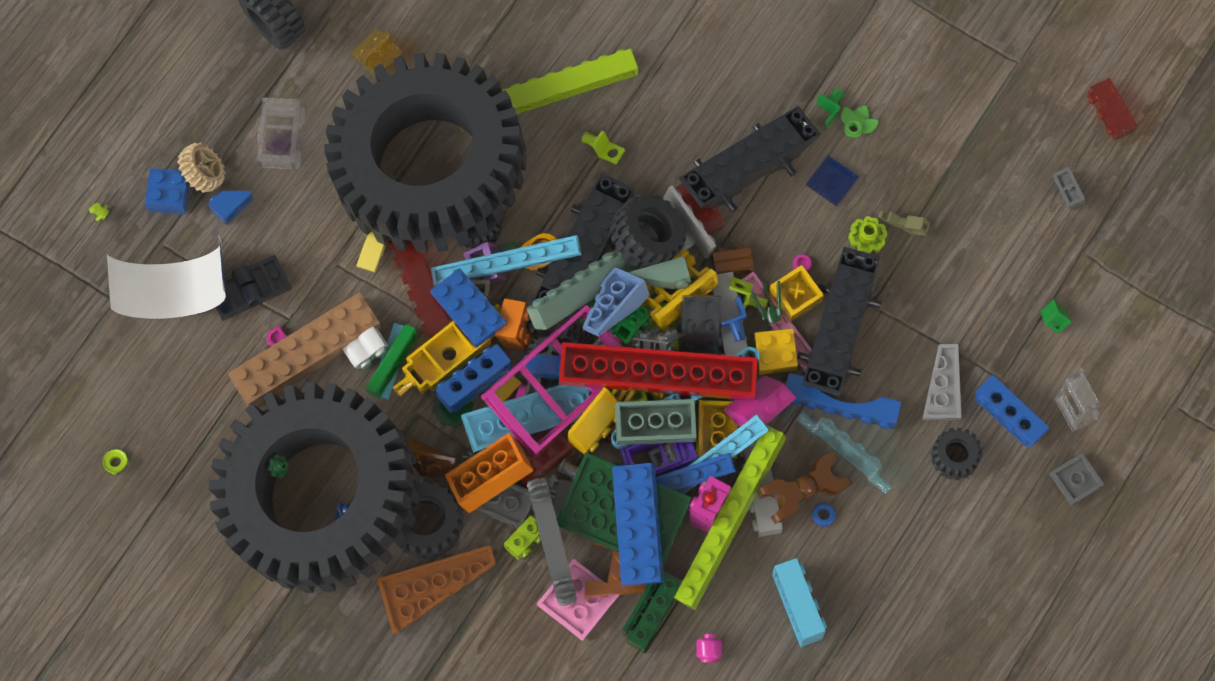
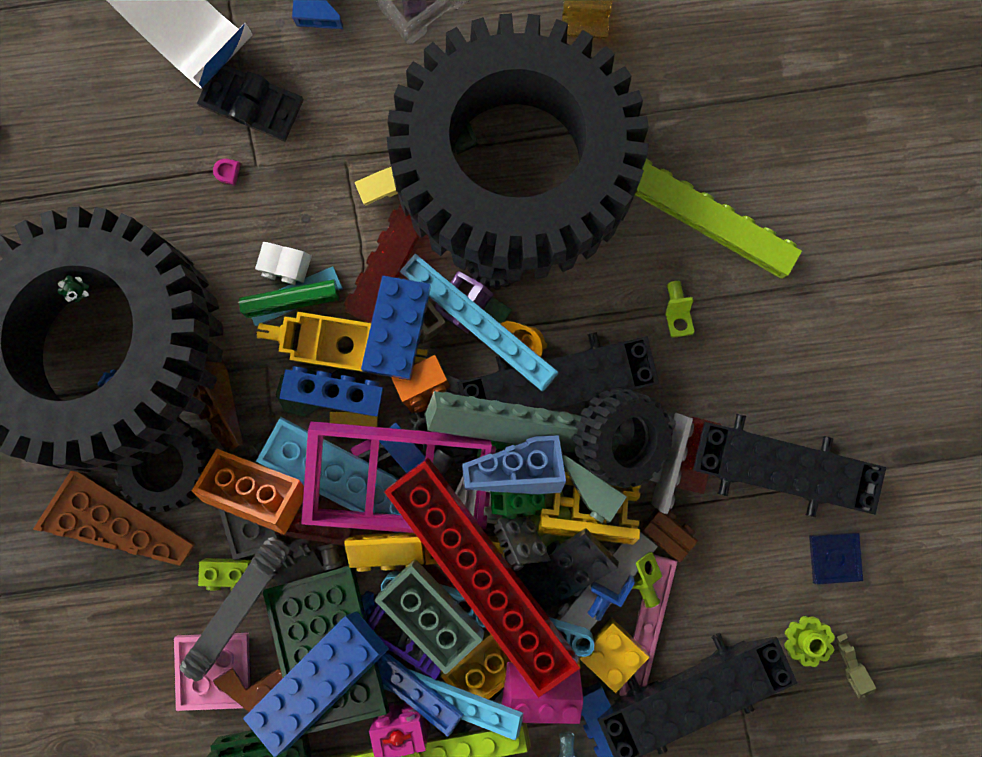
camera: 50 degrees right, 15 degrees up
(303, 350) = (230, 207): medium nougat brick -> none
(771, 313) = (646, 621): dark green plant -> none
(797, 293) = (689, 625): yellow brick -> none
(803, 260) = (725, 600): dark pink tile -> none
(830, 105) = (913, 492): green bracket -> none
(858, 119) = (920, 530): bright green plate -> none

